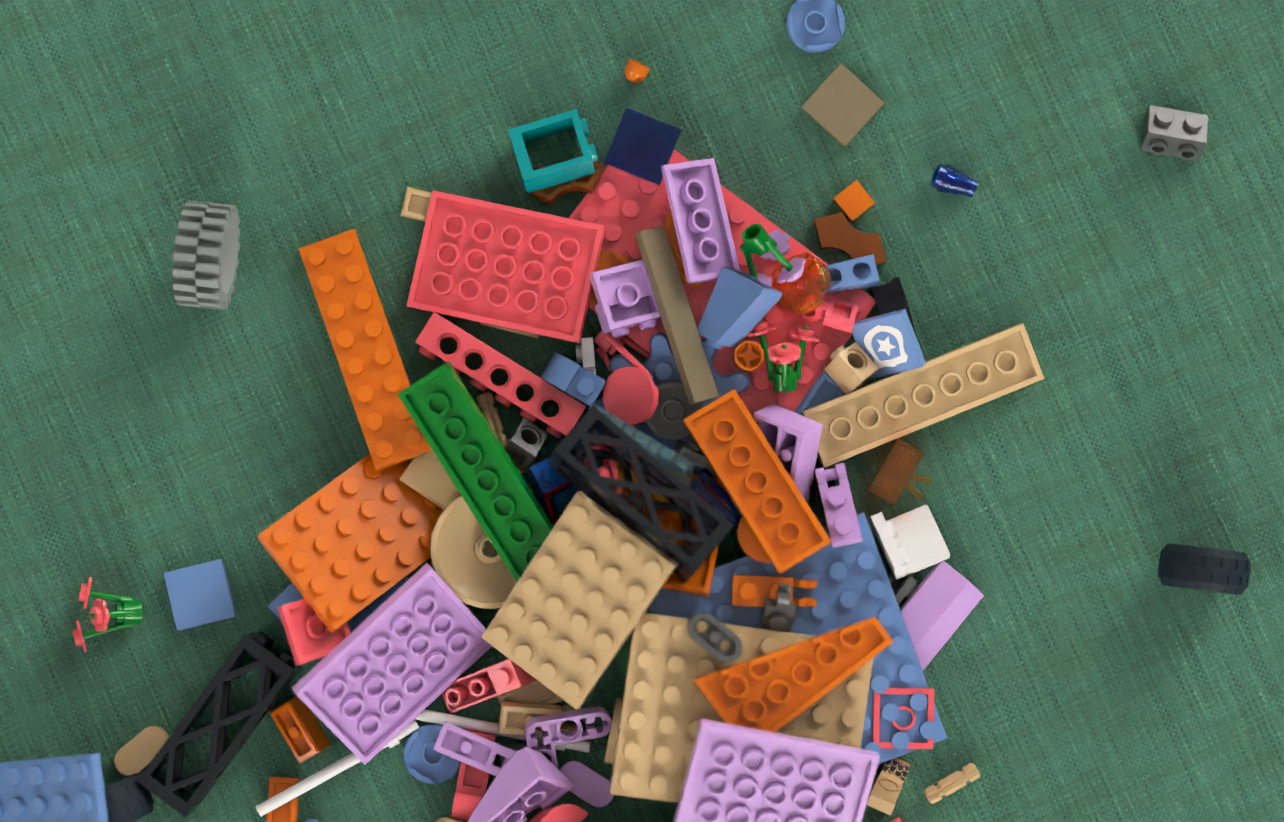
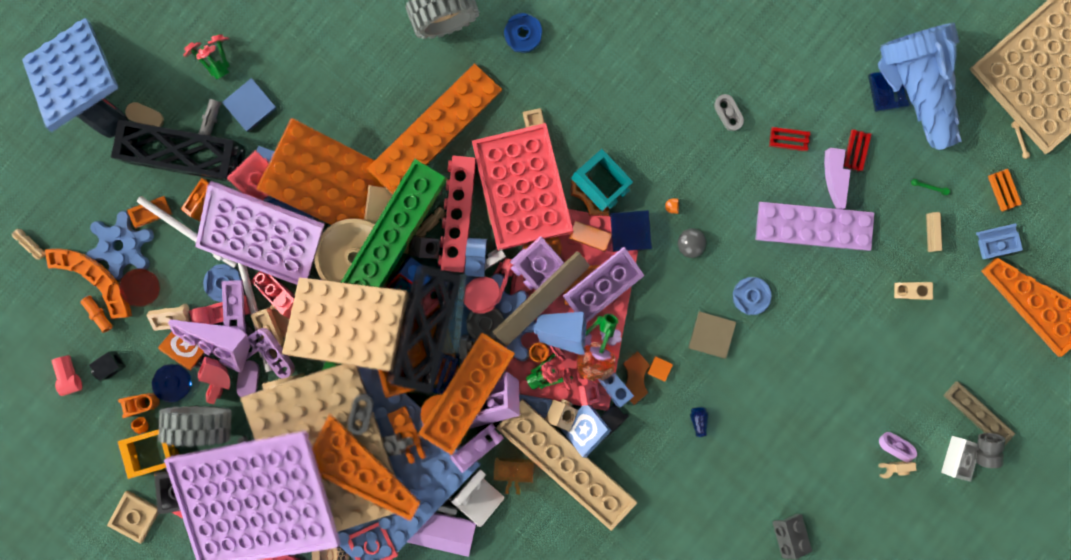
camera: 65 degrees right, 0 degrees up
(178, 645) = (209, 118): none -> light grey pin
(277, 147) = (513, 28): none -> blue plate
(622, 206) = (590, 236): none -> orange slope
(700, 69) = (692, 242): none -> dark grey hair

